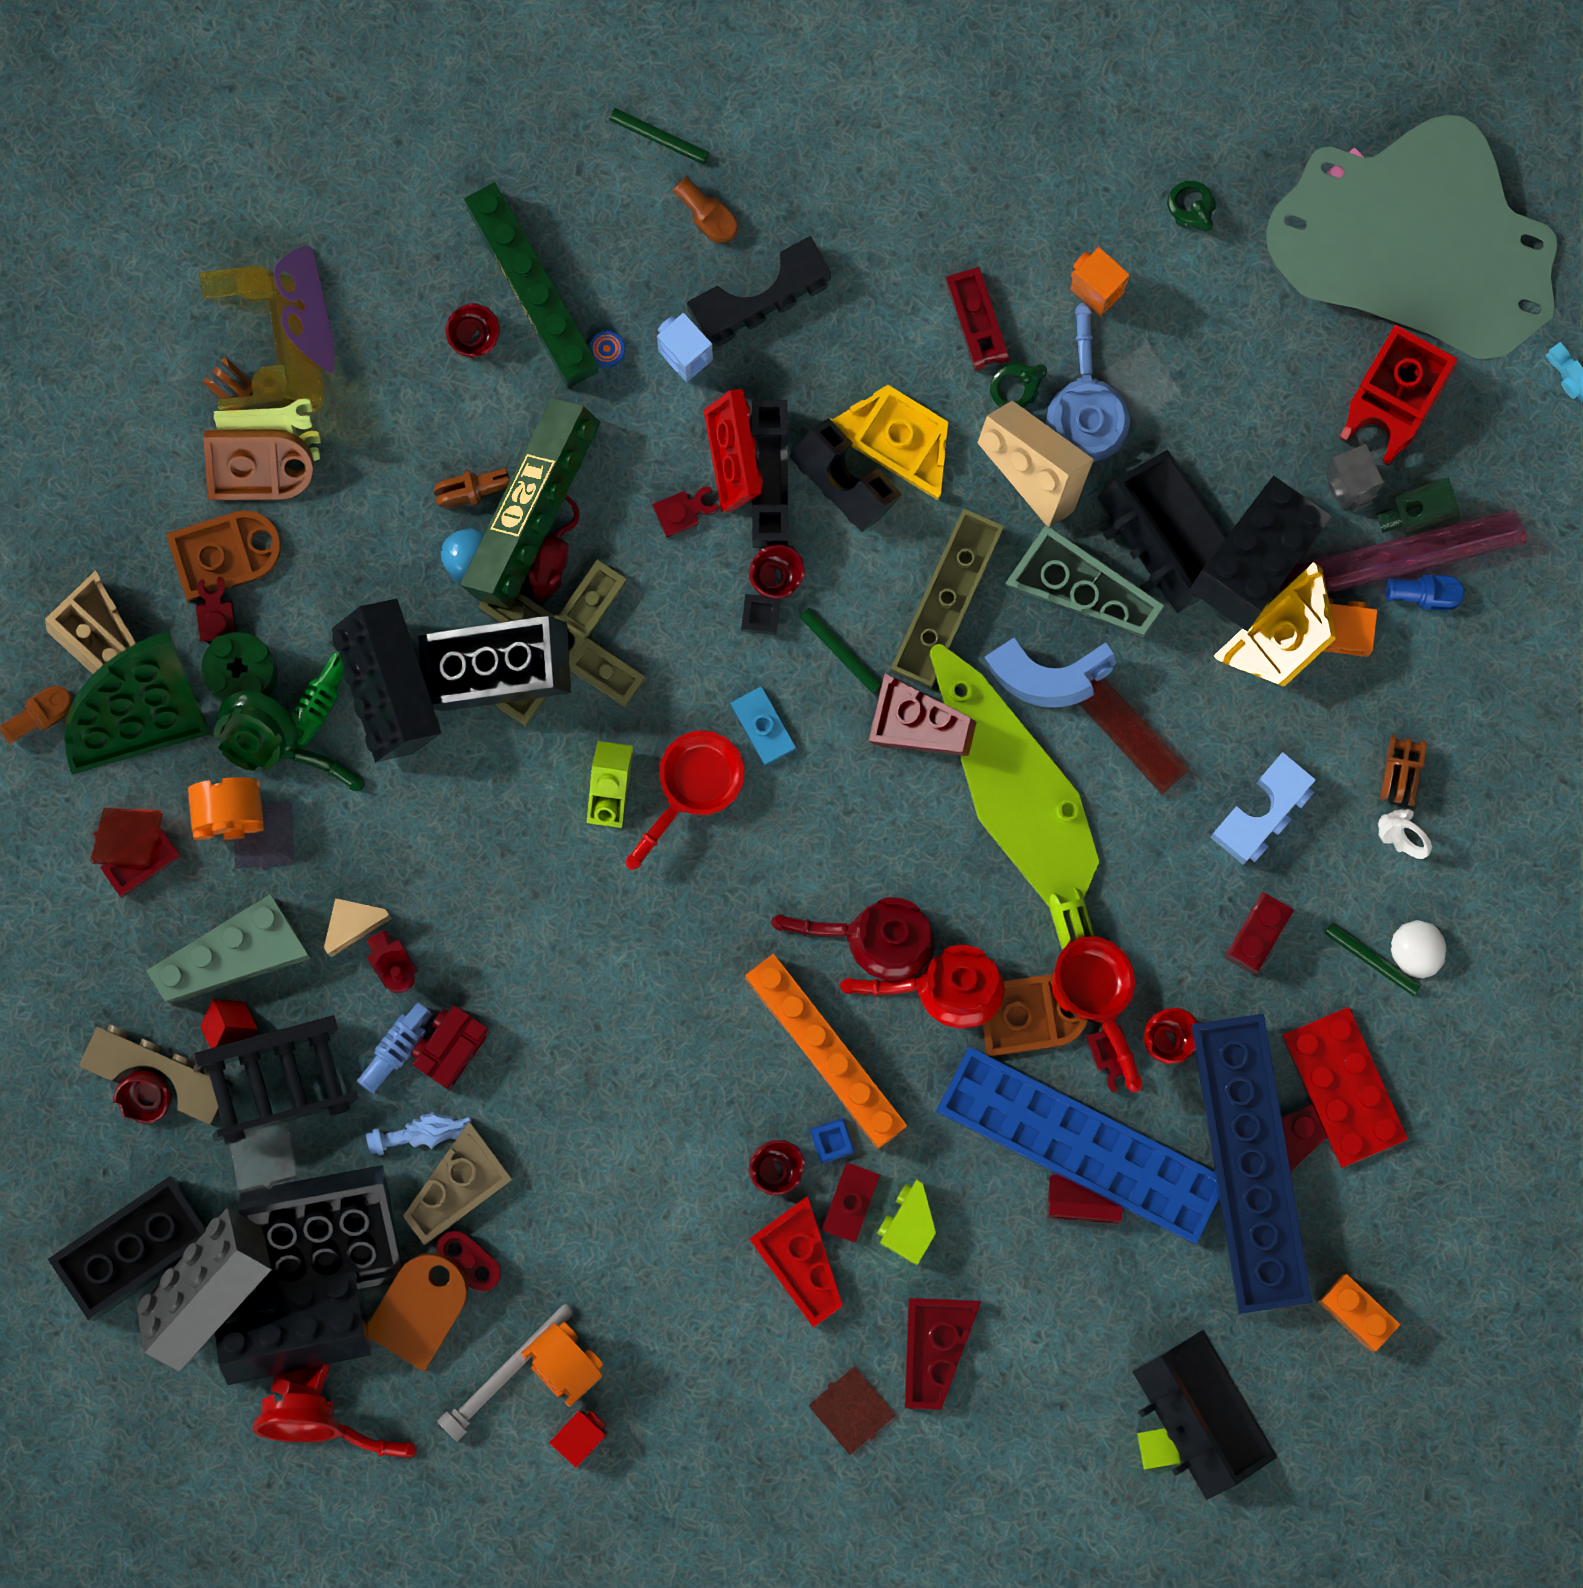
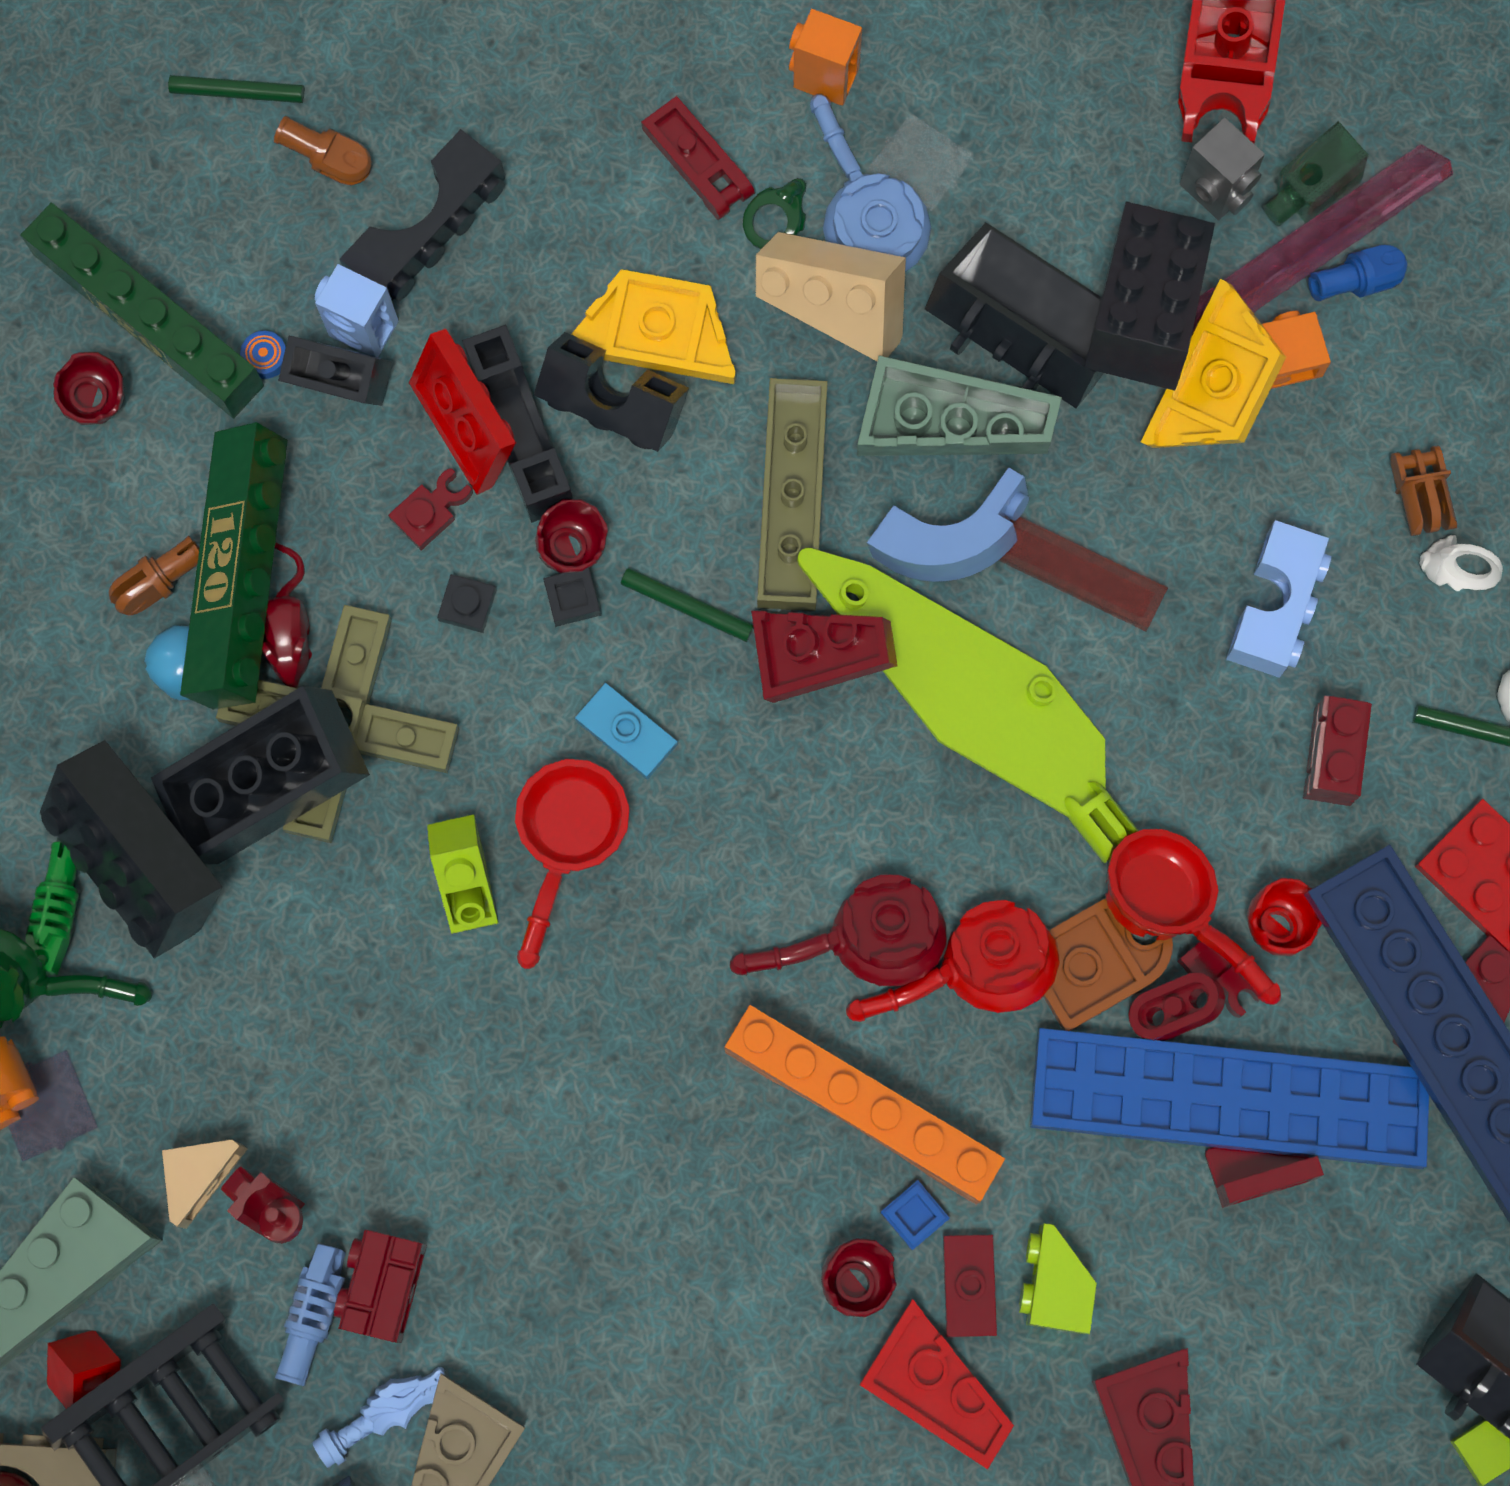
camera: 20 degrees left, 5 degrees down
(653, 384) = (335, 370): none -> black brick
(684, 590) = (467, 603): none -> black plate
(1072, 1068) = (1179, 1006): none -> dark red plate

